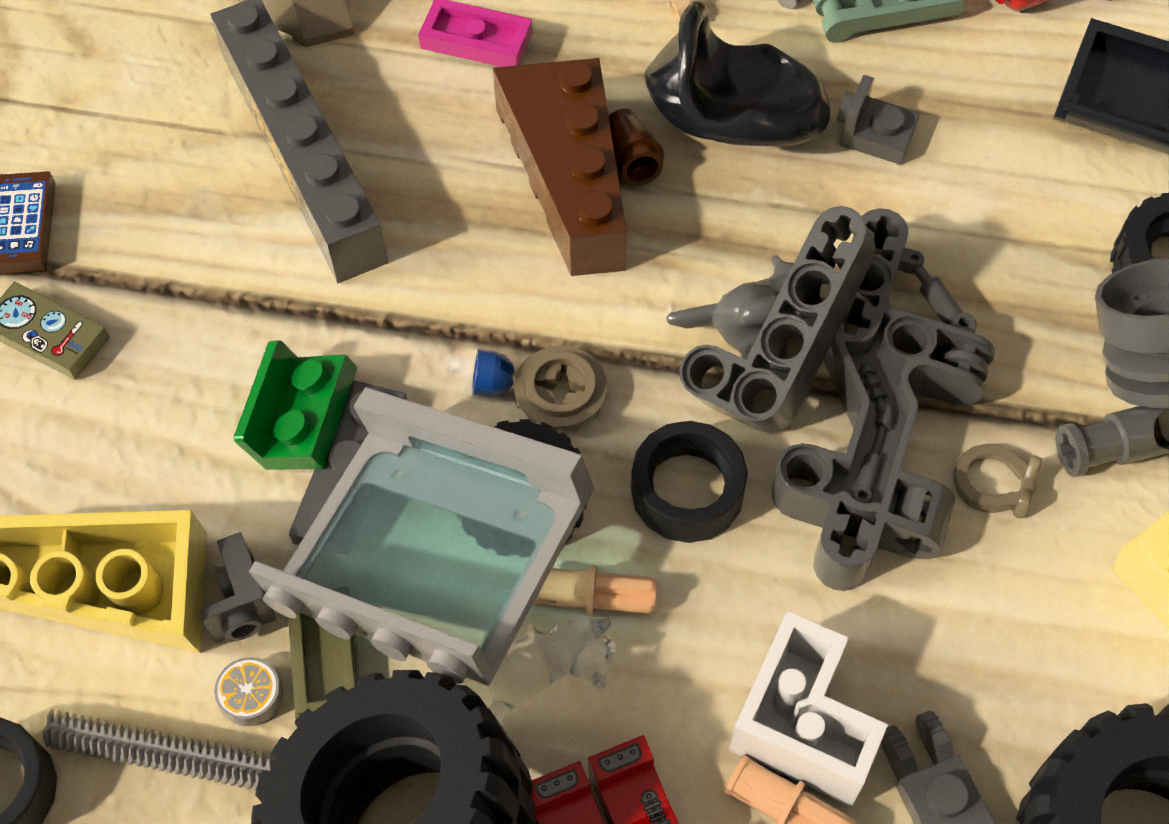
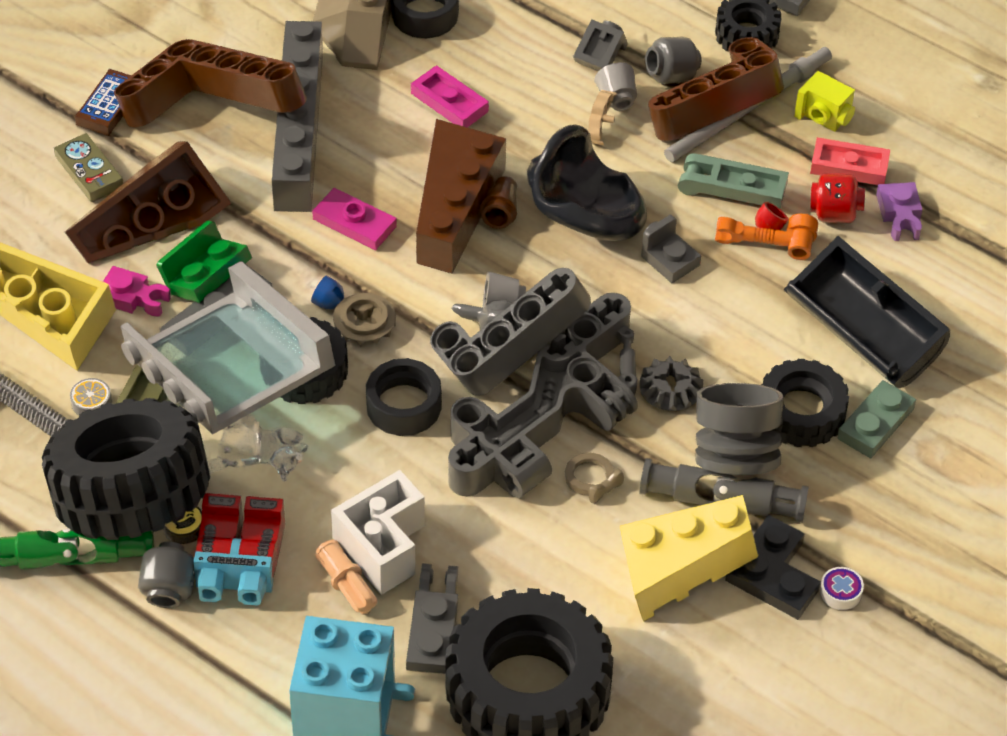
camera: 25 degrees right, 10 degrees down
(156, 120) = (209, 70): none -> reddish brown beam
(171, 344) = (157, 201): none -> reddish brown wedge
(212, 491) = (133, 290): none -> dark pink plate
(243, 608) = (107, 354): dark grey bracket -> none
(455, 249) = (354, 218): none -> dark pink plate
(598, 591) = (311, 427): light nougat axle -> none
(716, 271) = (501, 287): none -> light grey hat
(965, 32) = (770, 217): none -> red hinge
(999, 320) = (657, 390): none -> dark grey gear
(1010, 39) = (800, 234): none -> orange brick

